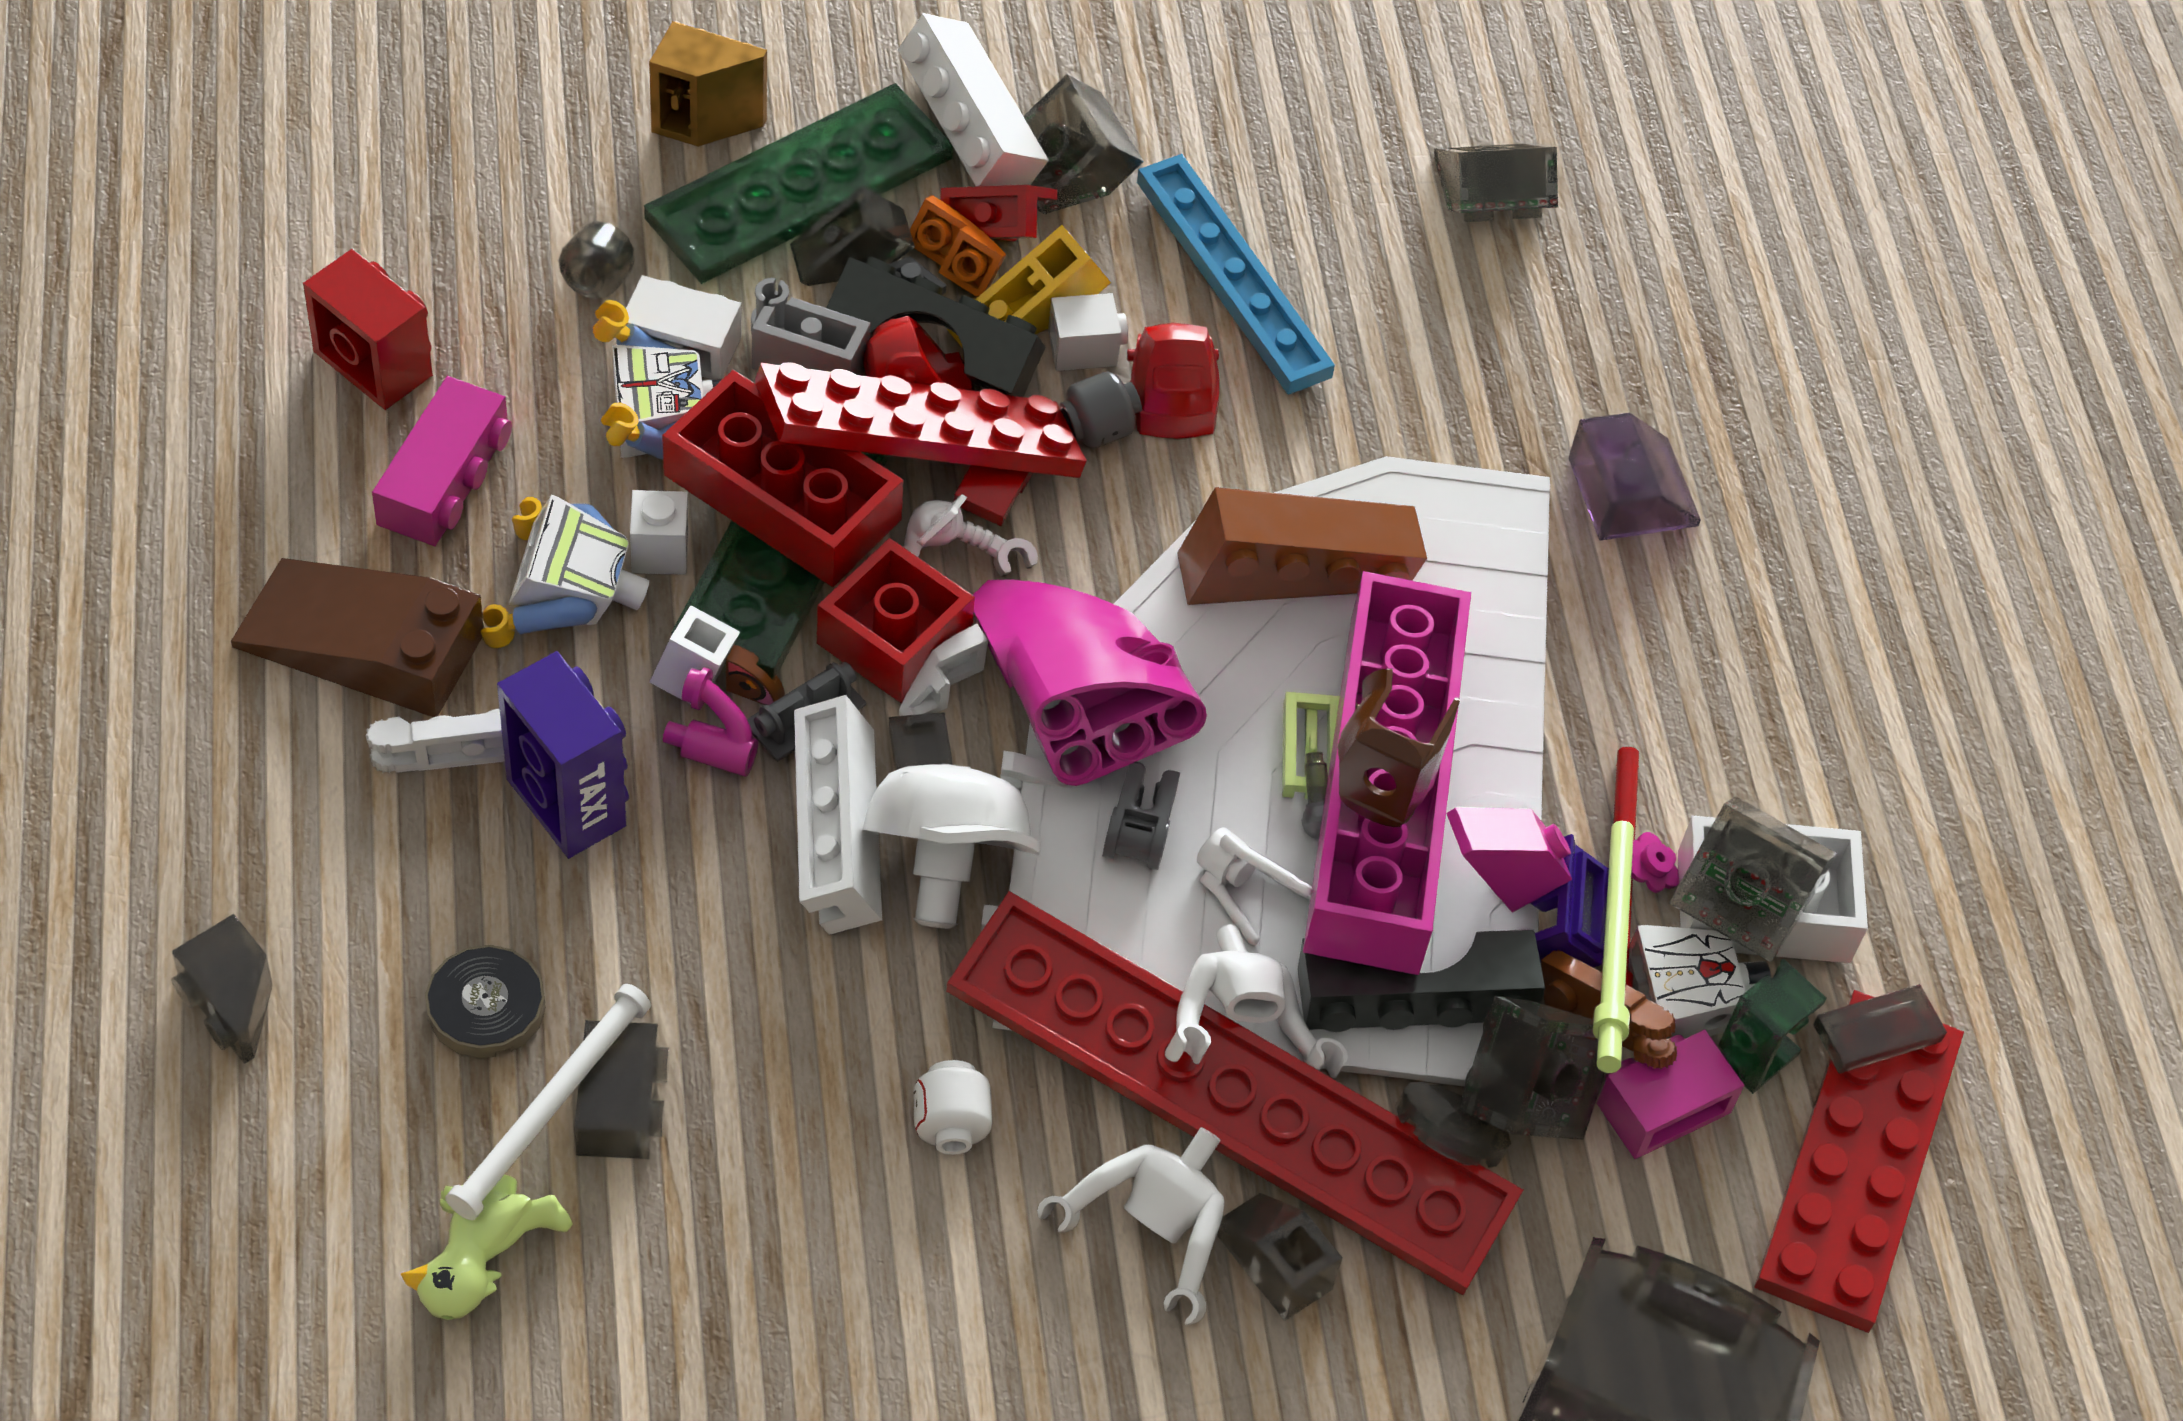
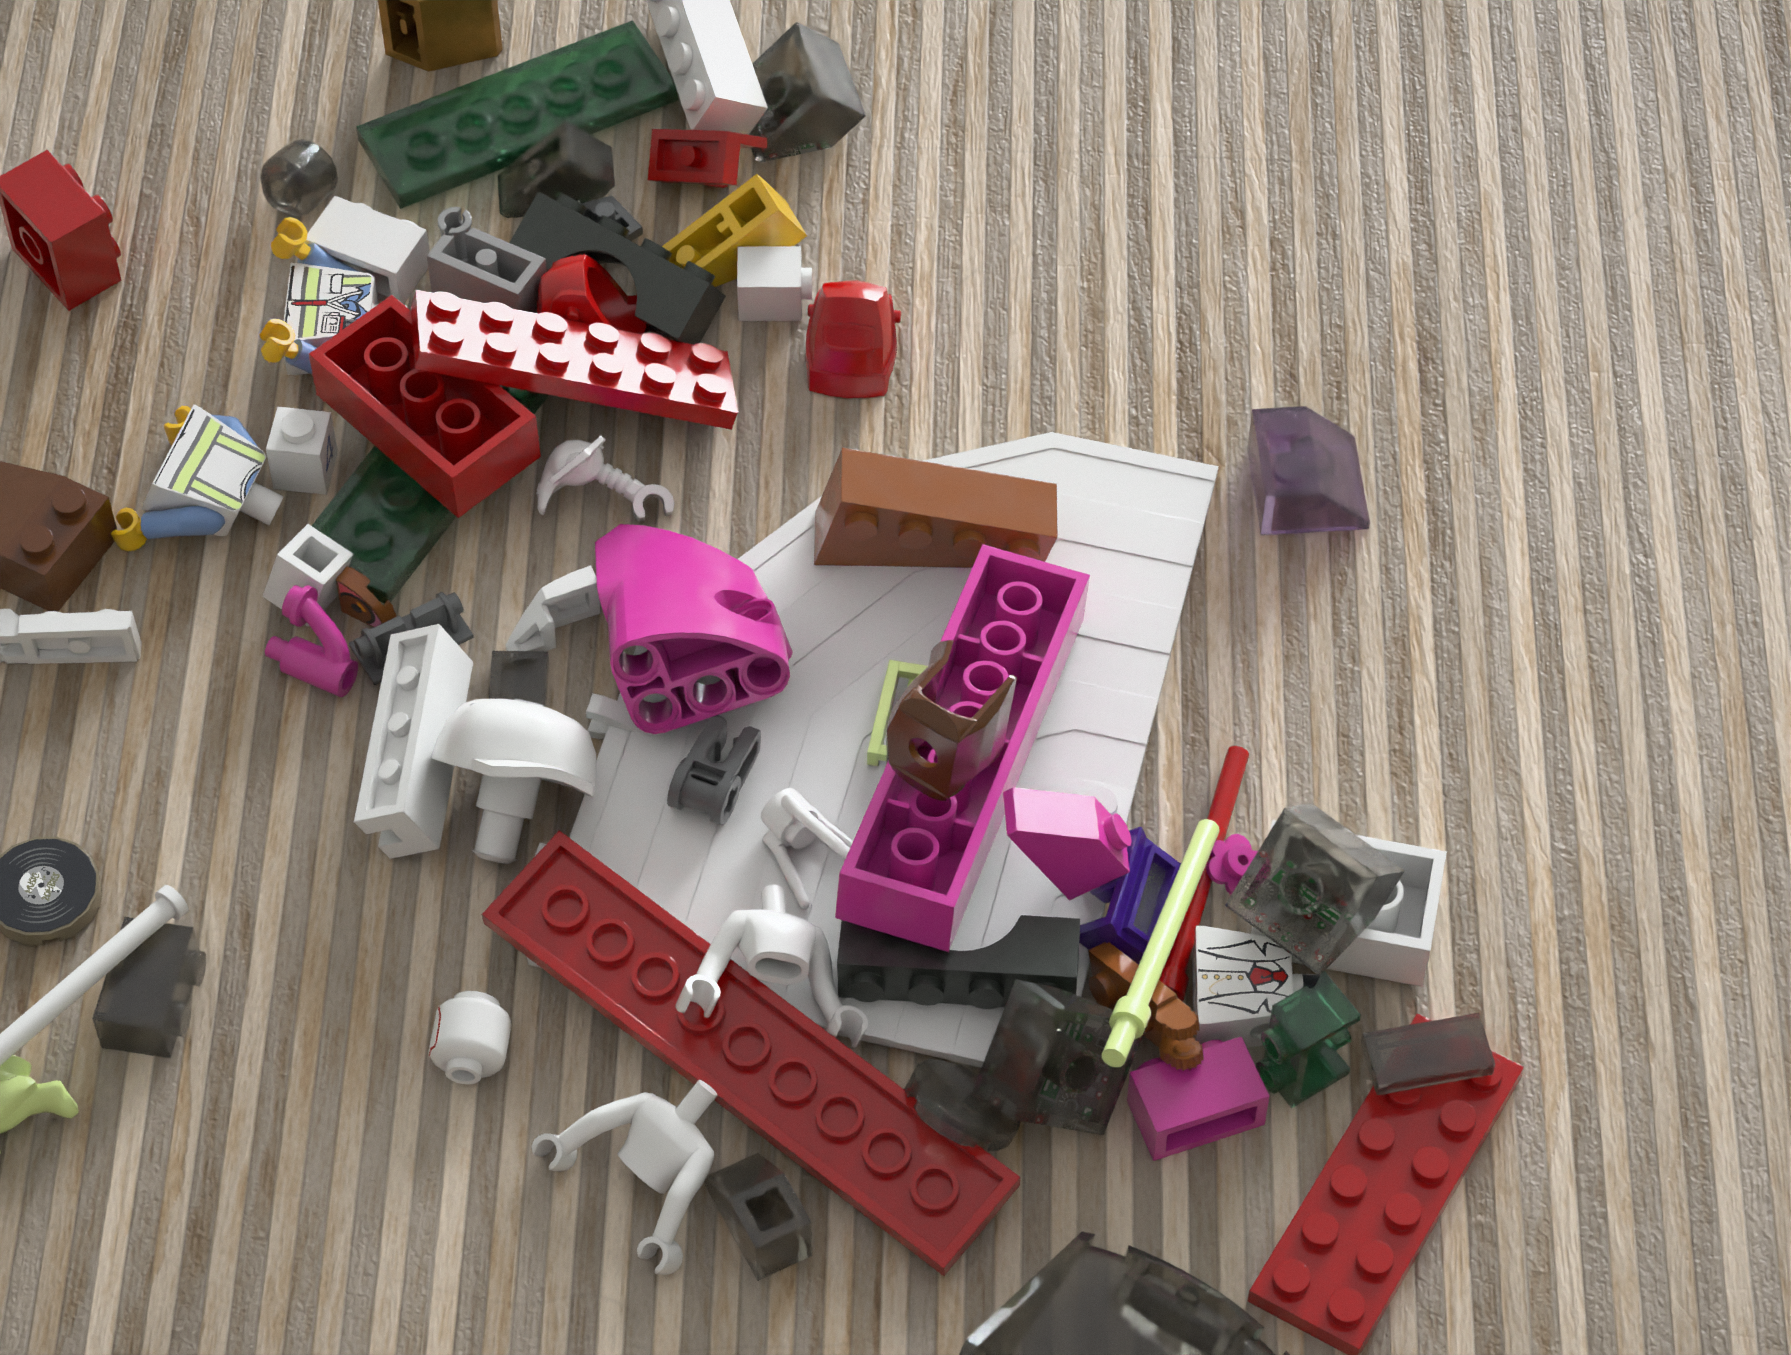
camera: 15 degrees right, 0 degrees up
(441, 461) = (106, 364): dark pink brick -> none
(564, 753) = (153, 656): dark purple brick -> none
(892, 617) = (508, 550): red brick -> none
(957, 245) = (658, 185): orange slope -> none
(991, 491) = (640, 436): red slope -> none
(1101, 409) = (768, 362): dark grey head -> none
(1235, 274) = (938, 236): dark azure plate -> none
(1498, 179) = (1232, 158): clear smoke slope -> none

